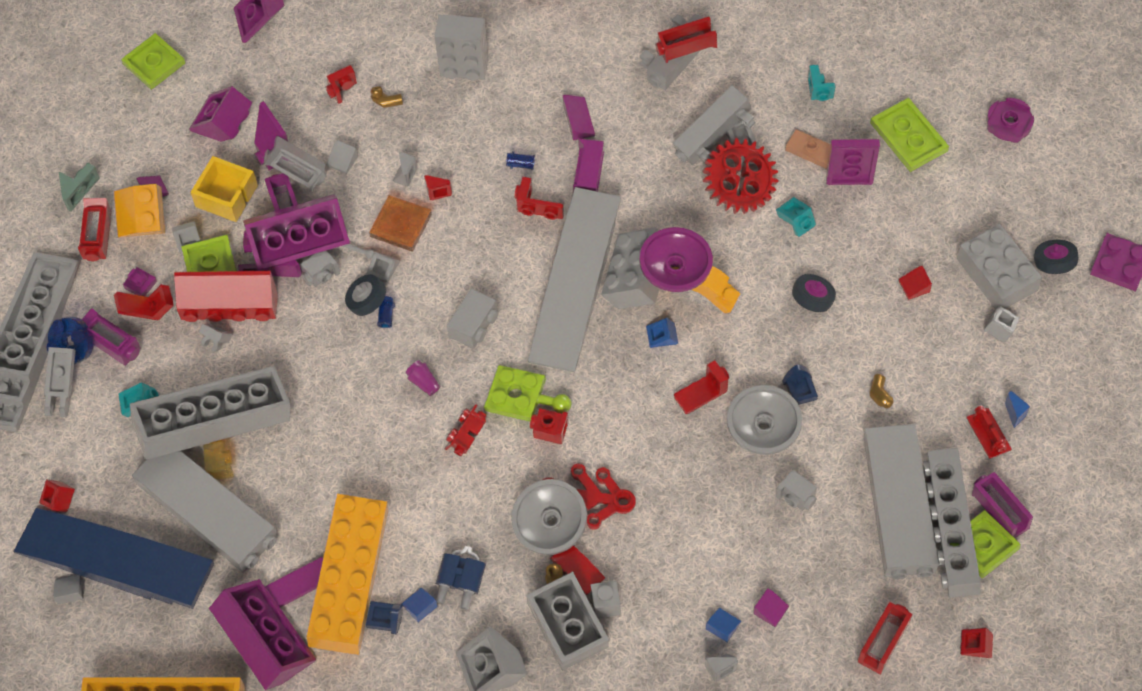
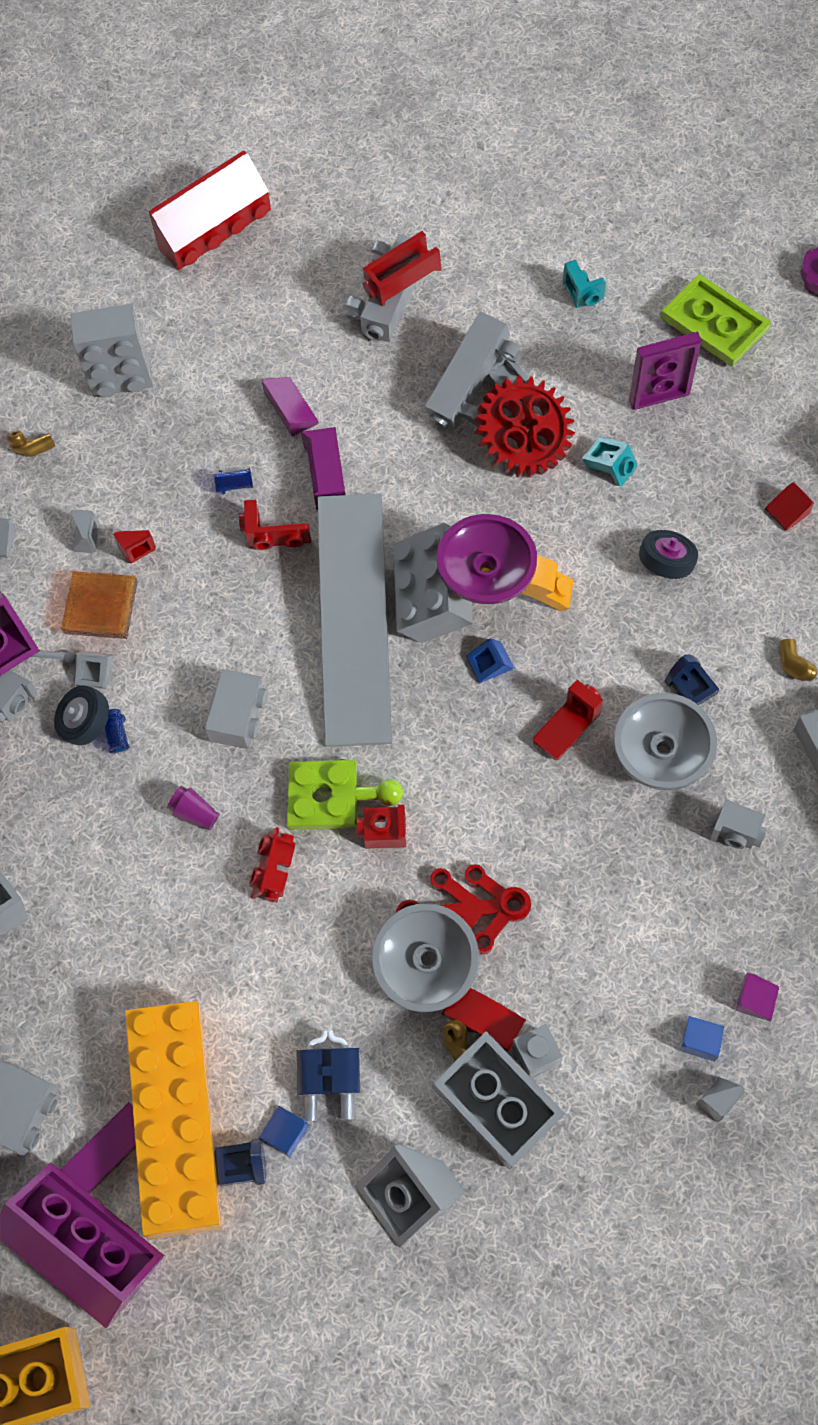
camera: 15 degrees left, 5 degrees up
(809, 148) = (598, 369): nougat plate -> none

